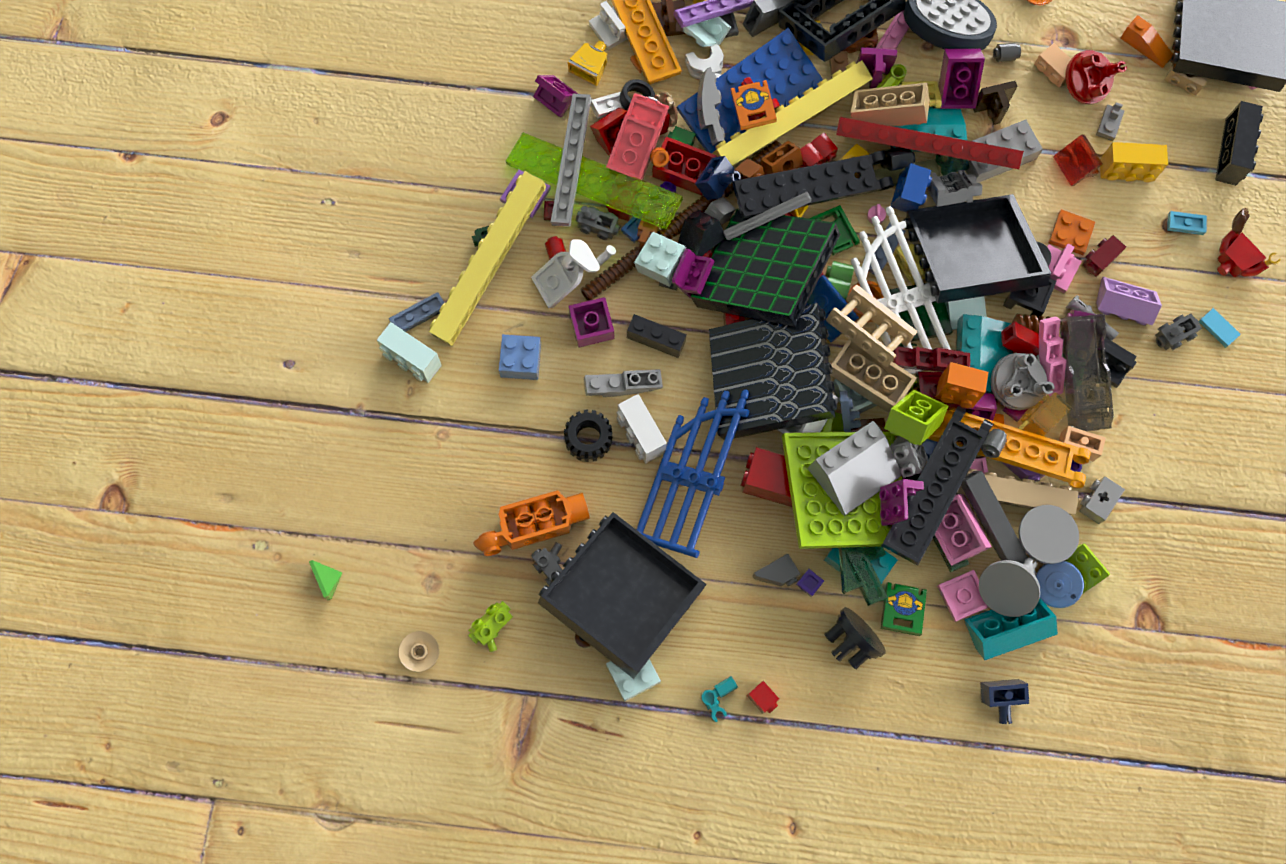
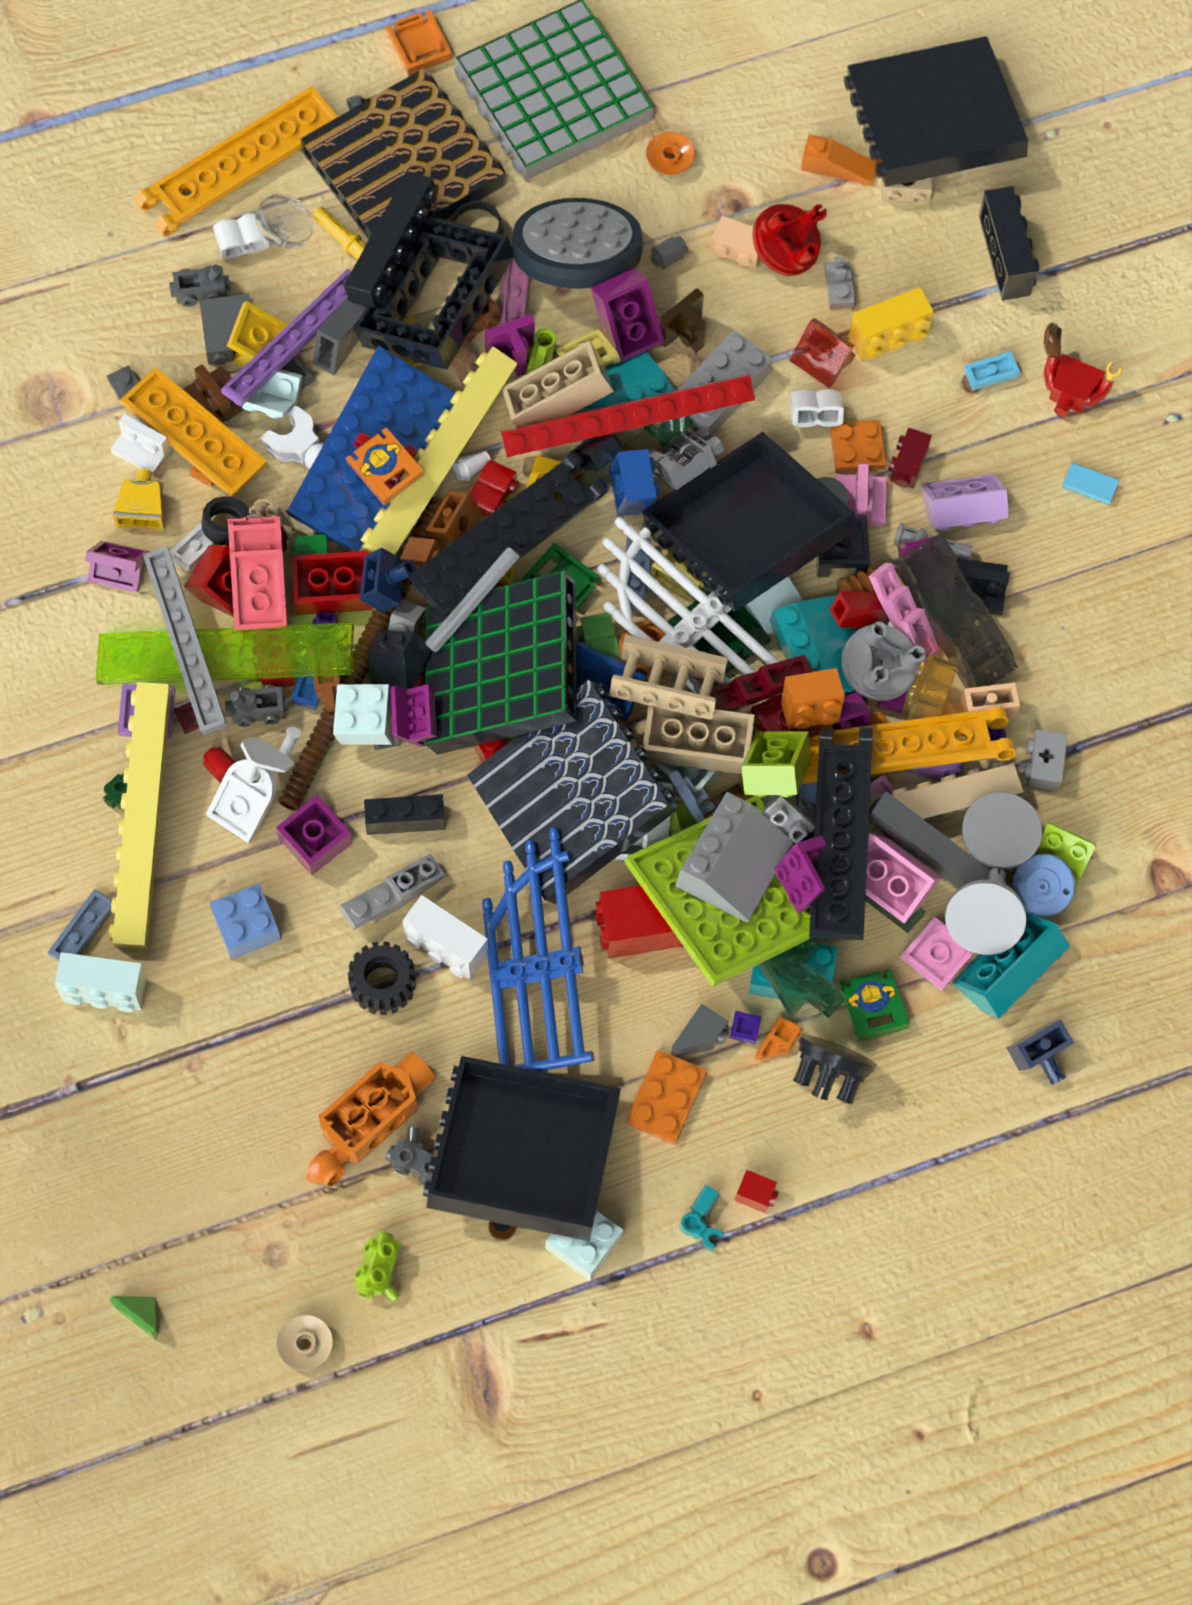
camera: 25 degrees left, 5 degrees down
(659, 157) = (297, 586): orange tile -> none
(707, 100) = (323, 485): light grey slope -> none
(734, 603) = (666, 1097): none -> orange plate
(810, 131) = (470, 465): none -> white cone
(829, 601) = (779, 1039): none -> orange tile
(877, 211) = (604, 530): bright pink tile -> none
(994, 443) = (885, 751): dark grey brick -> none
(1054, 194) = (816, 408): none -> white brick
(1172, 335) = (1037, 519): dark grey brick -> none

